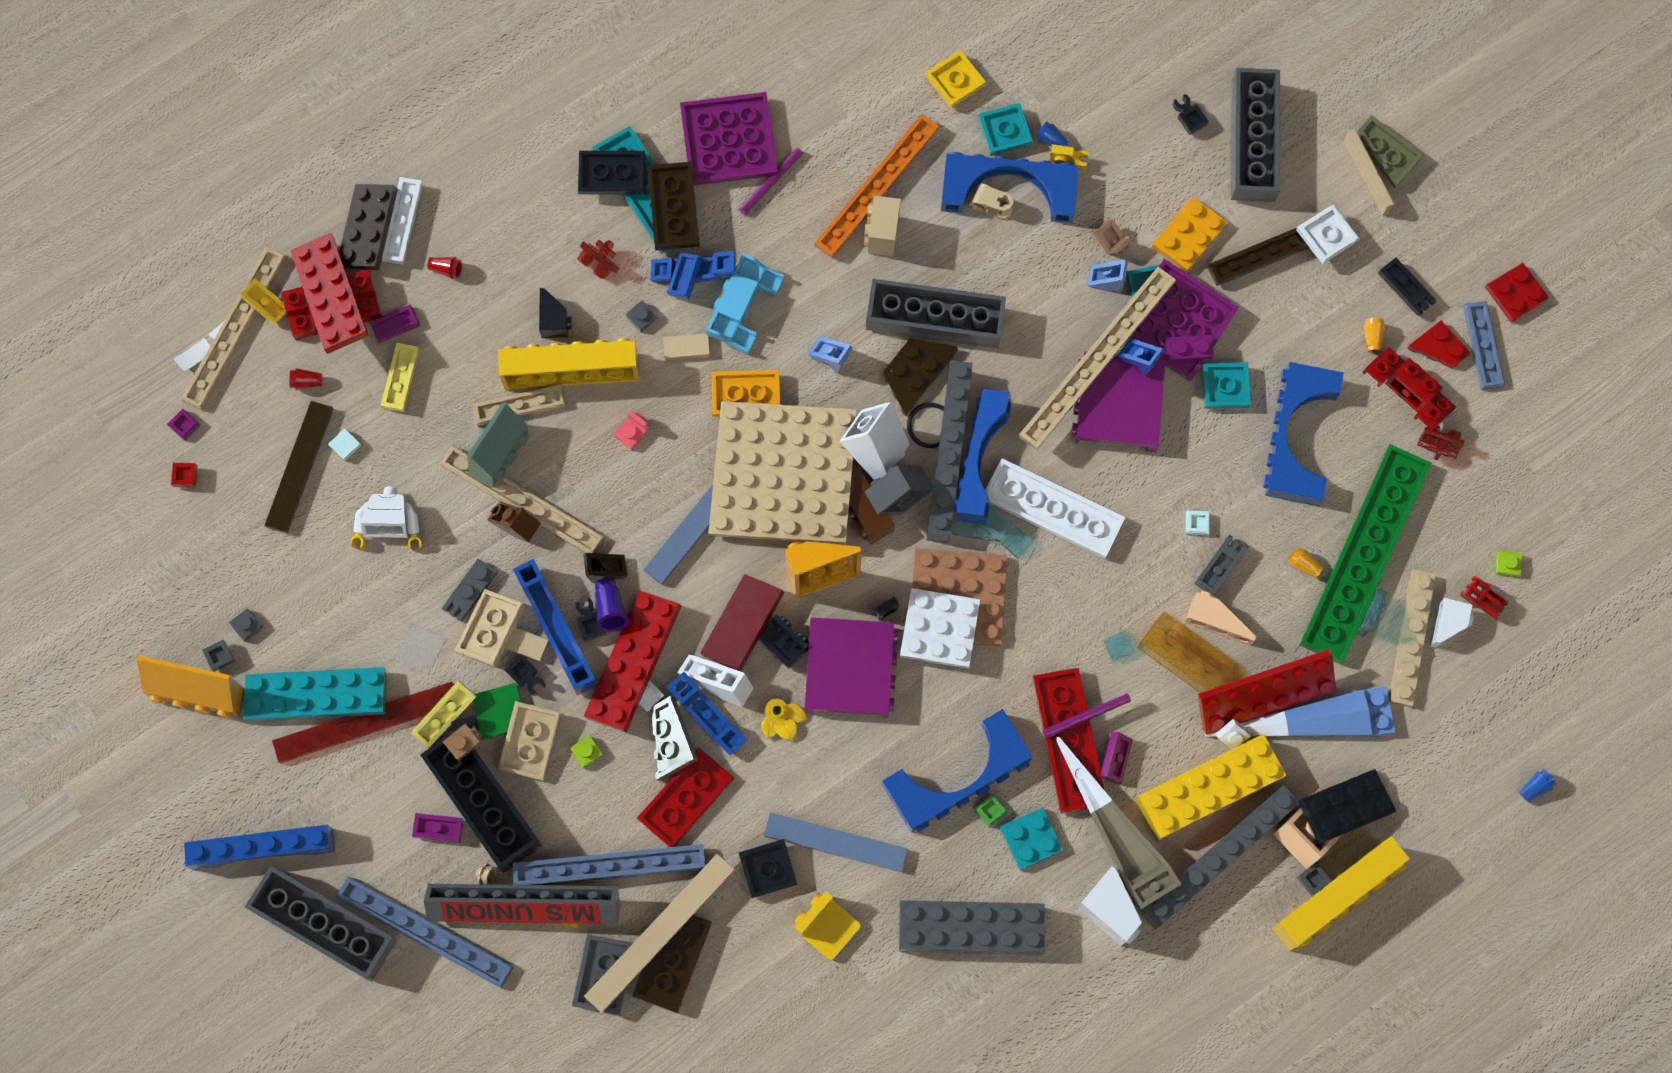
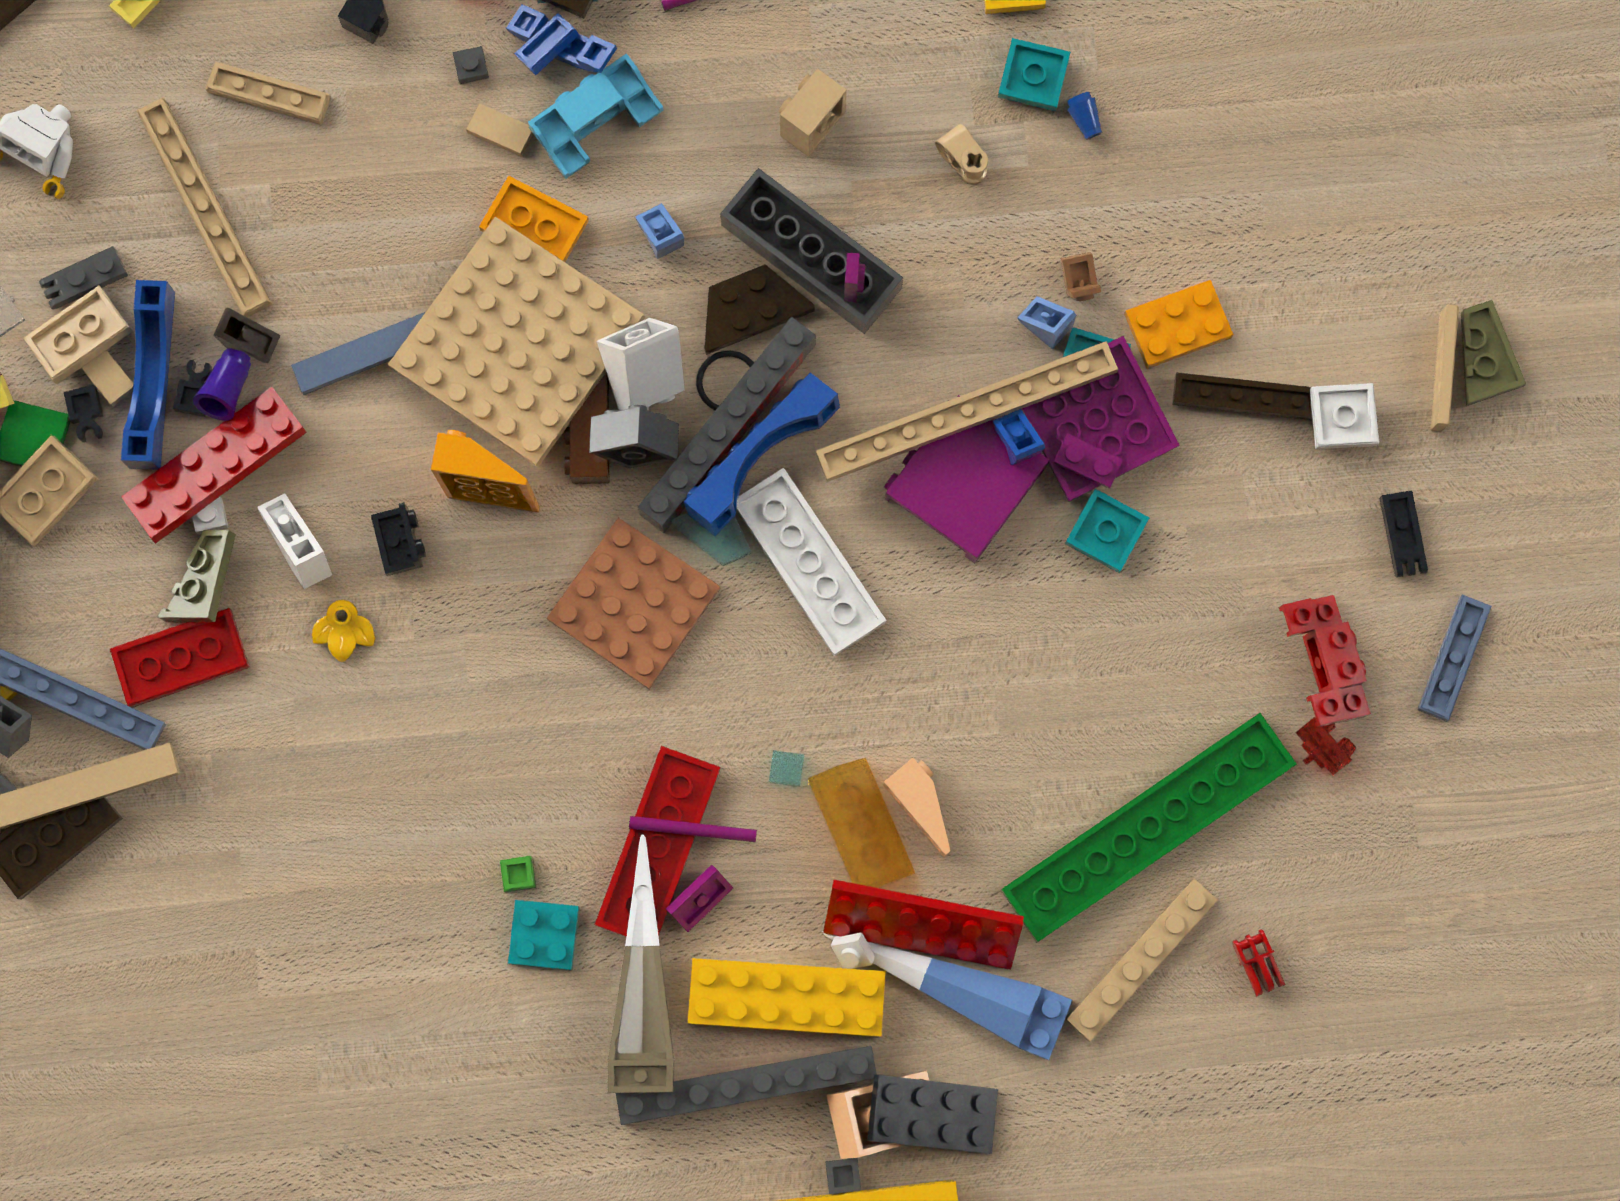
camera: 30 degrees right, 5 degrees up
(344, 444) = (44, 29): light aqua tile -> none
(497, 446) = (207, 125): sand green slope -> none
(514, 521) = (177, 225): reddish brown slope -> none
(568, 364) = (347, 75): yellow brick -> none
(586, 751) = (101, 539): lime plate -> none
(632, 430) = (378, 194): coral bracket -> none
(706, 714) = (260, 573): blue slope -> none
(742, 623) = (364, 491): dark red tile -> none
(767, 868) = (220, 793): black plate -> none
(826, 926) = (246, 897): yellow bracket -> none
(835, 842) = (317, 808): sand blue tile -> none
(850, 666) = (456, 614): magenta panel -> none
(876, 185) = (840, 58): orange plate -> none
(886, 608) = (540, 569): black tile -> none
(922, 805) = (570, 821): blue arch -> none
(940, 628) = (585, 627): white plate -> none
(972, 927) = (408, 997): dark grey brick -> none
(979, 311) = (854, 277): none -> magenta plate
(1017, 542) = (743, 578): clear light blue tile -> none
(1054, 180) = (953, 101): blue arch -> none
(1063, 154) = (1085, 145): yellow plate -> none
(1112, 909) = (579, 1071): white slope -> none
(1190, 117) = (1269, 183): black plate -> none
(1197, 522) = (971, 675): light aqua tile -> none
(1220, 566) = (965, 743): dark grey hinge -> none
(1255, 135) = (1332, 246): dark grey brick -> none
(1286, 476) = (1196, 583): blue arch -> none
(1304, 562) = (1068, 796): light orange cone -> none
(1373, 613) = (1120, 897): clear light blue wing -> none
(1374, 333) = (1326, 569): light orange cone -> none
(1441, 345) = (1400, 628): red wing -> none
(1451, 620) = (1200, 967): white slope -> none
(1508, 563) = (1316, 938): lime plate -> none
(1517, 292) = (1537, 616): red plate -> none

